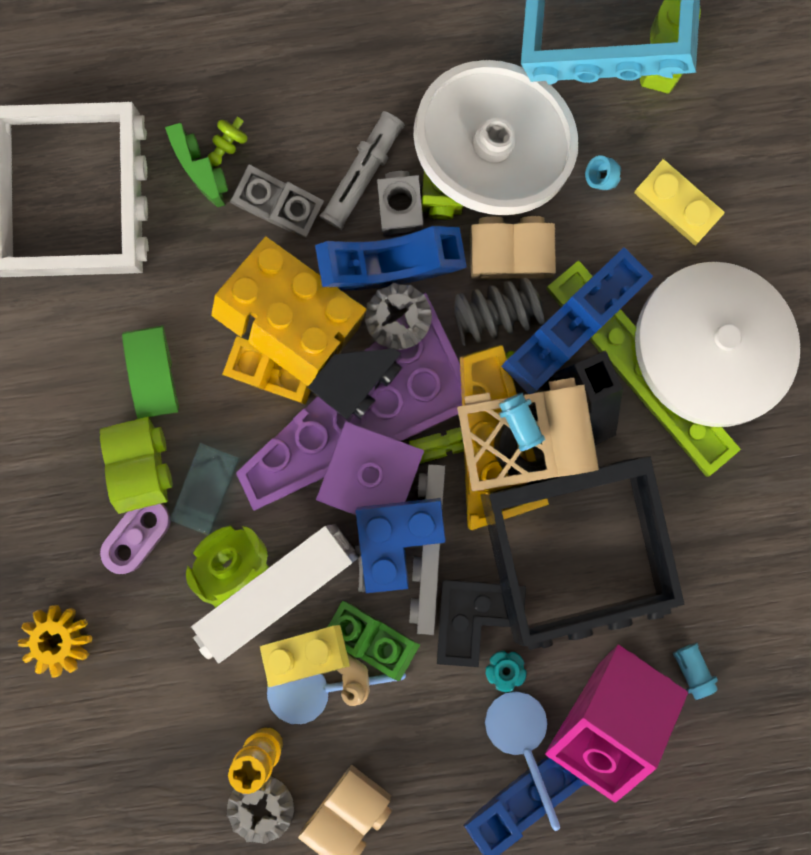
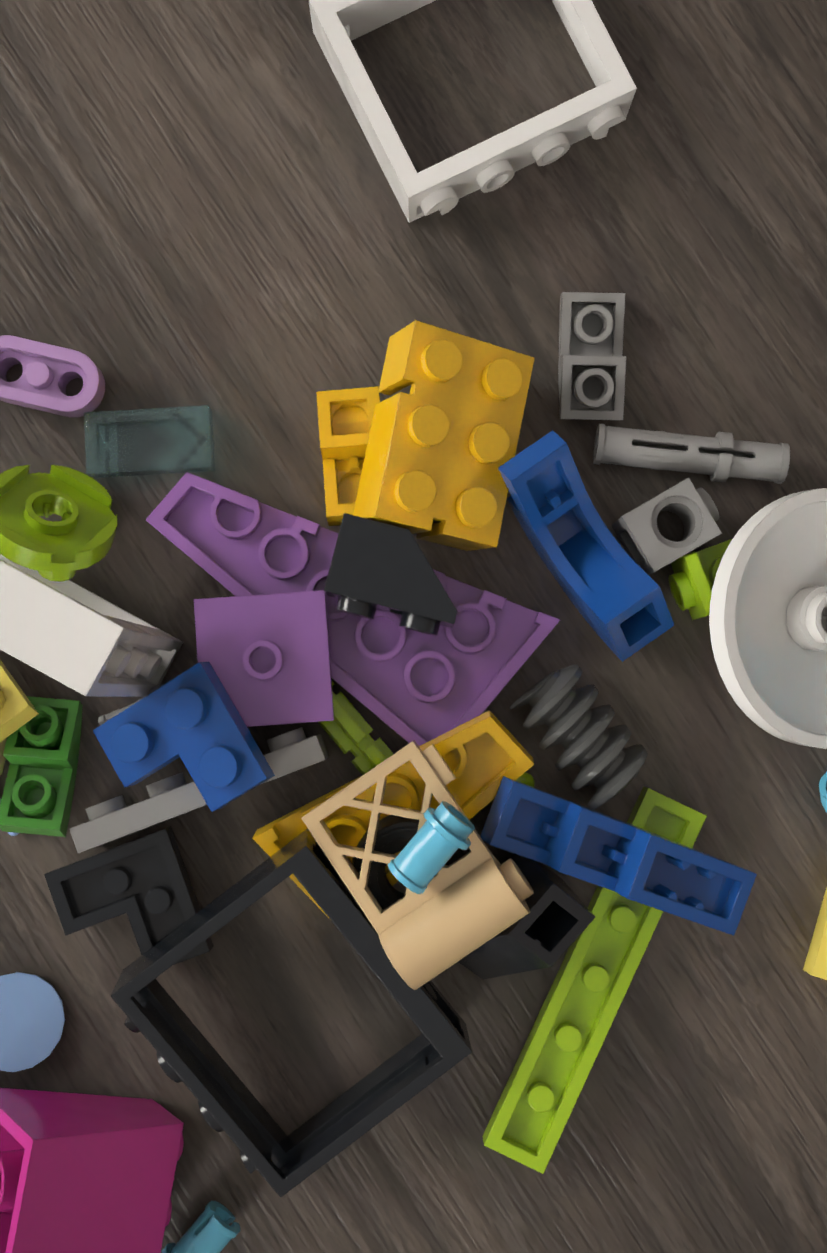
camera: 60 degrees right, 0 degrees up
(135, 465) = (132, 327): lime brick -> none
(150, 372) = (273, 291): bright green slope -> none
(202, 172) = (586, 227): bright green slope -> none
(225, 142) = (639, 248): lime hair -> none
(394, 334) = (519, 624): light grey gear -> none
(512, 249) = (678, 715): tan brick -> none
(517, 672) = (97, 969): teal plate -> none
(717, 344) = (678, 1072): white dish -> none

